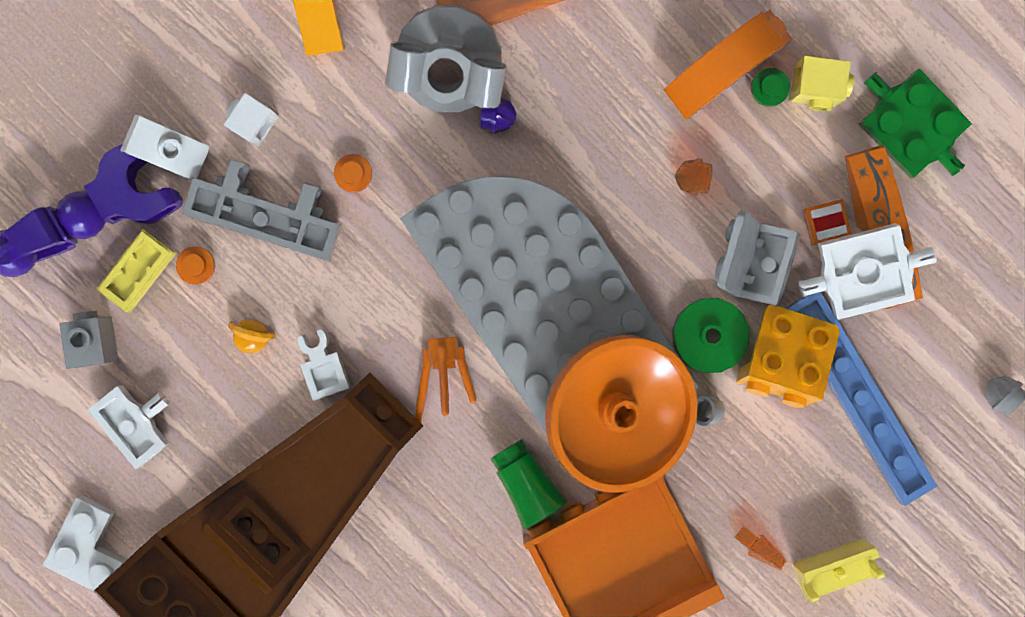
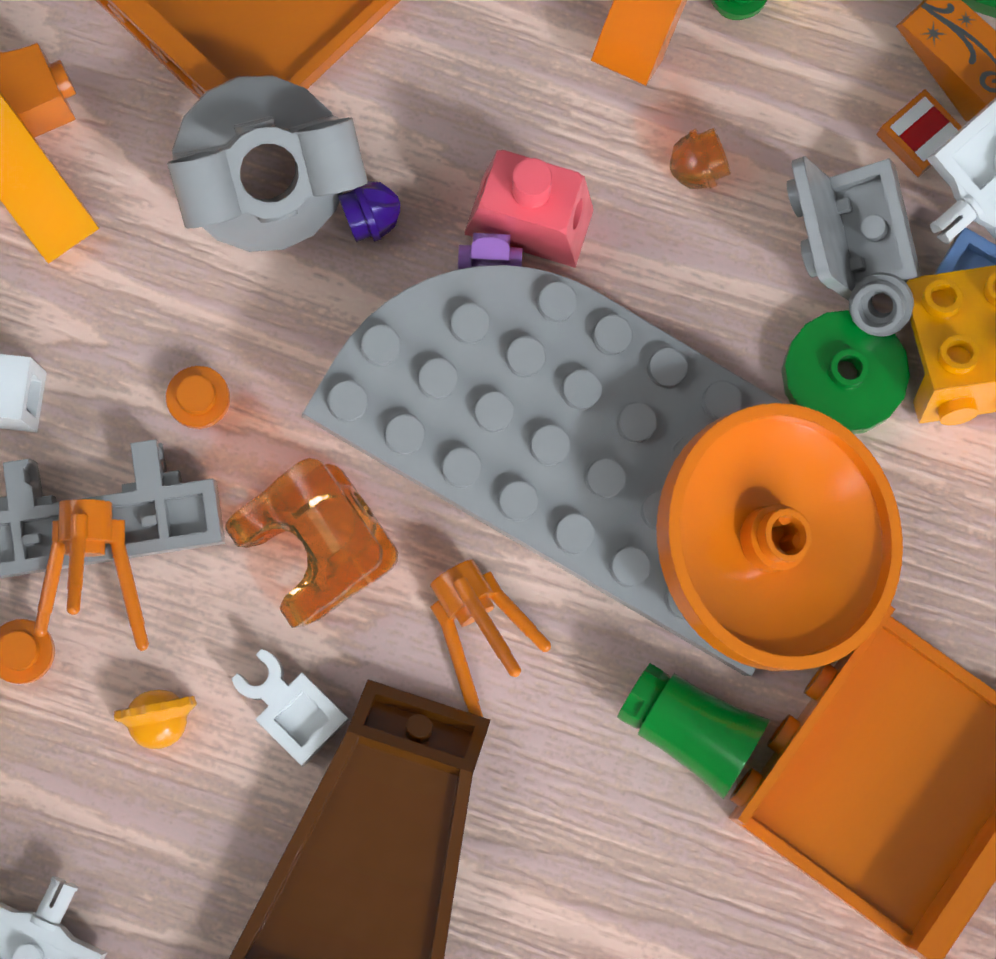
camera: 25 degrees left, 10 degrees down
(254, 221) = (81, 533): none -> orange plant
(390, 282) = (338, 531): none -> clear orange piece
(549, 174) = (489, 251): none -> medium lavender piece
(585, 159) = (536, 204): none -> coral torso
(709, 405) = (902, 471): light grey hinge -> none
(739, 315) = (870, 319): none -> light grey plate

